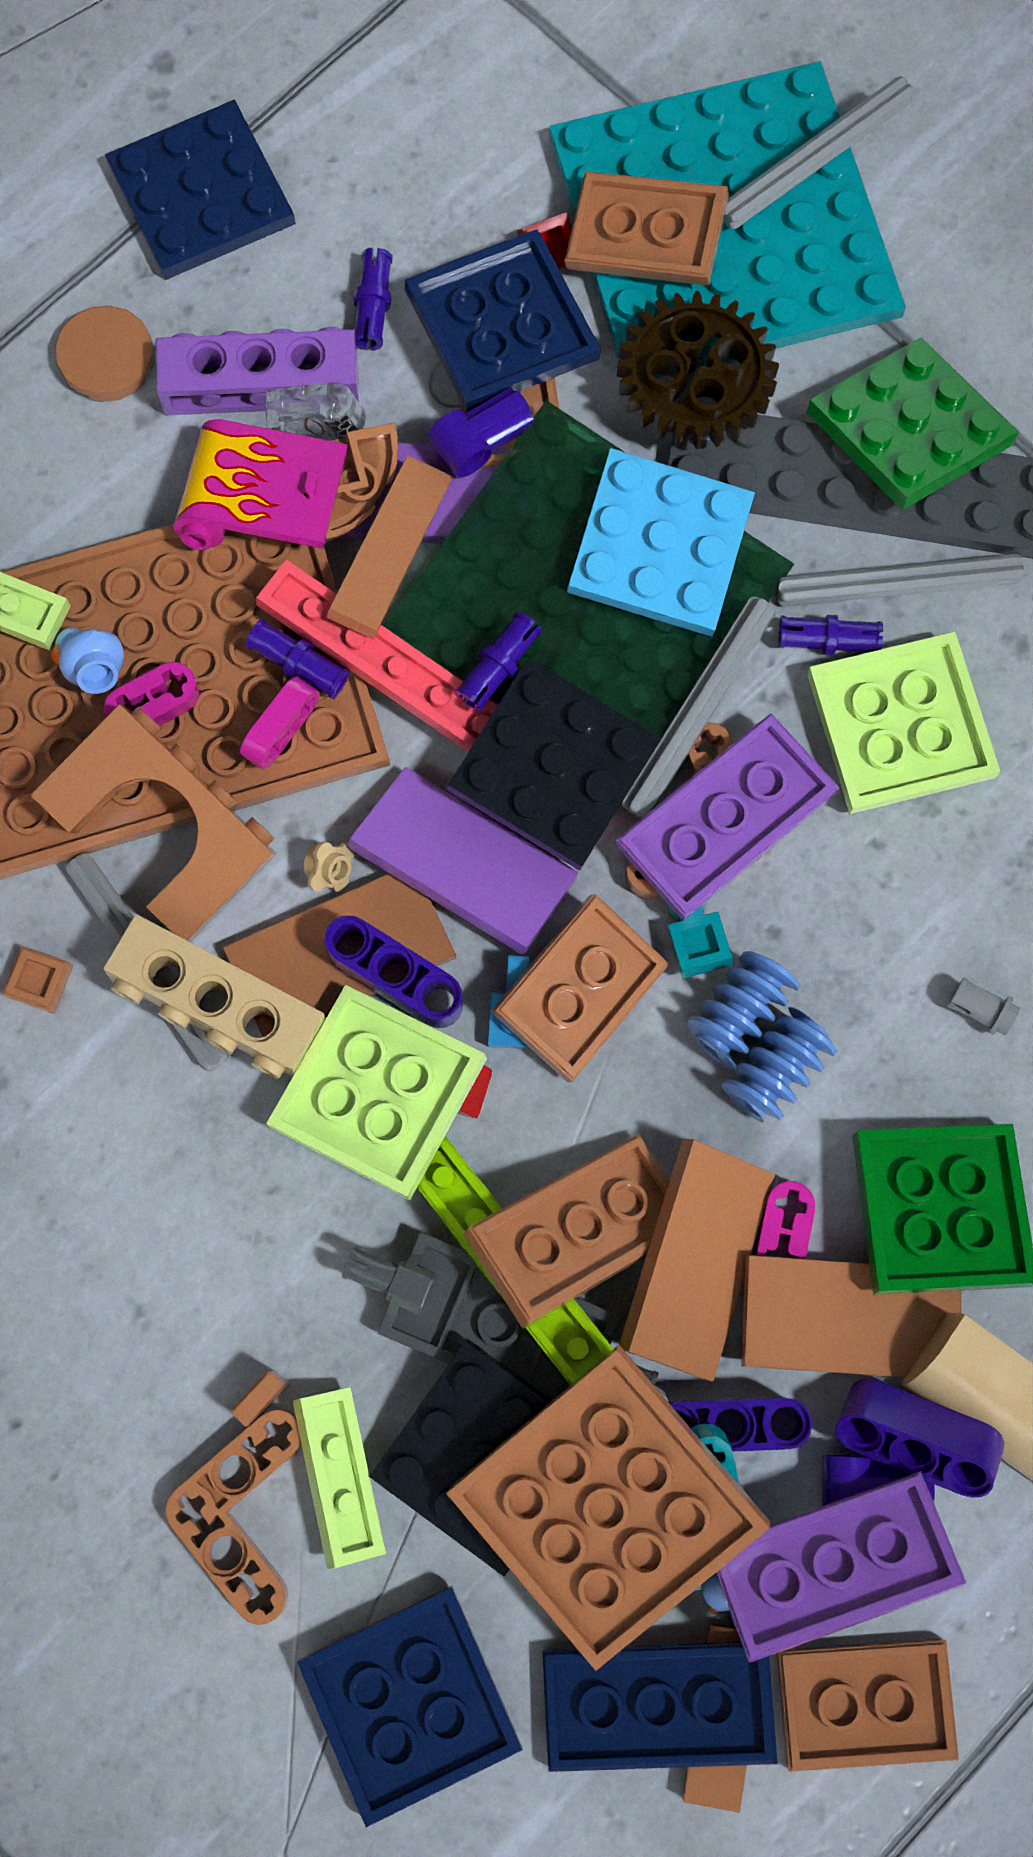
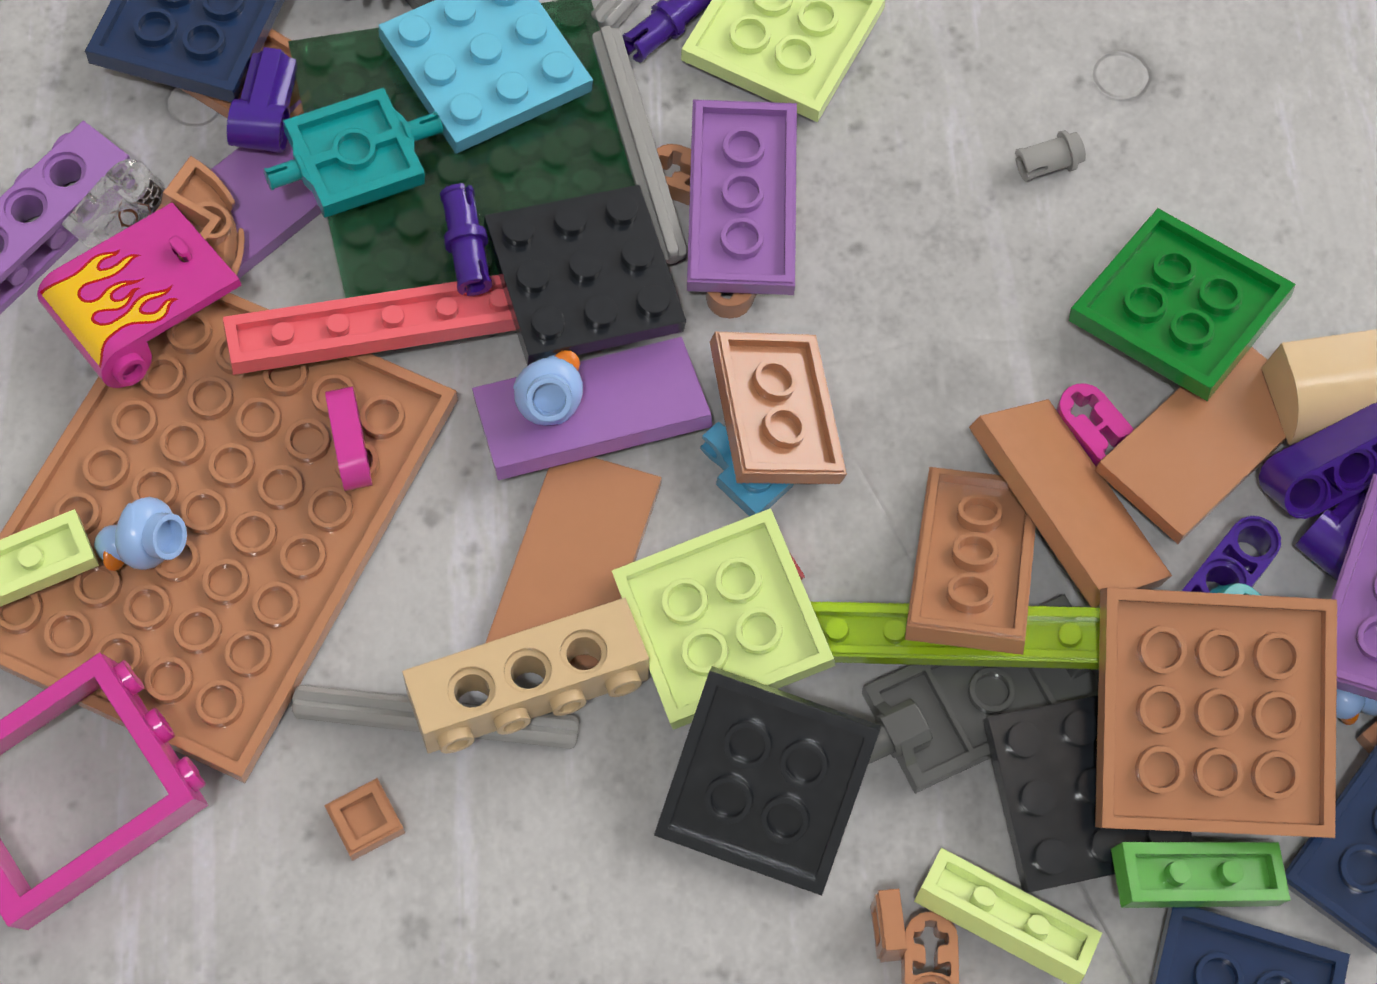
camera: 50 degrees left, 10 degrees down
(129, 752) = (260, 561): nougat arch -> none
(150, 693) = (214, 518): dark pink beam -> none
(283, 1225) = (767, 780): none -> black plate
(297, 658) = (308, 382): dark purple pin -> none
(328, 866) = (497, 508): tan plate -> none
(372, 298) = (63, 94): dark purple pin -> none
(382, 949) = (619, 546): dark purple beam -> none
(389, 547) = (291, 244): nougat tile -> none
(439, 822) = (549, 389): none -> light blue animal
(484, 1591) = (1200, 874): none -> bright green plate
(491, 525) = (354, 152): none -> teal plate
(699, 943) = (818, 299): teal plate -> none
(739, 1005) = (900, 310): medium blue piece -> none
(779, 1065) = (971, 323): medium blue piece -> none

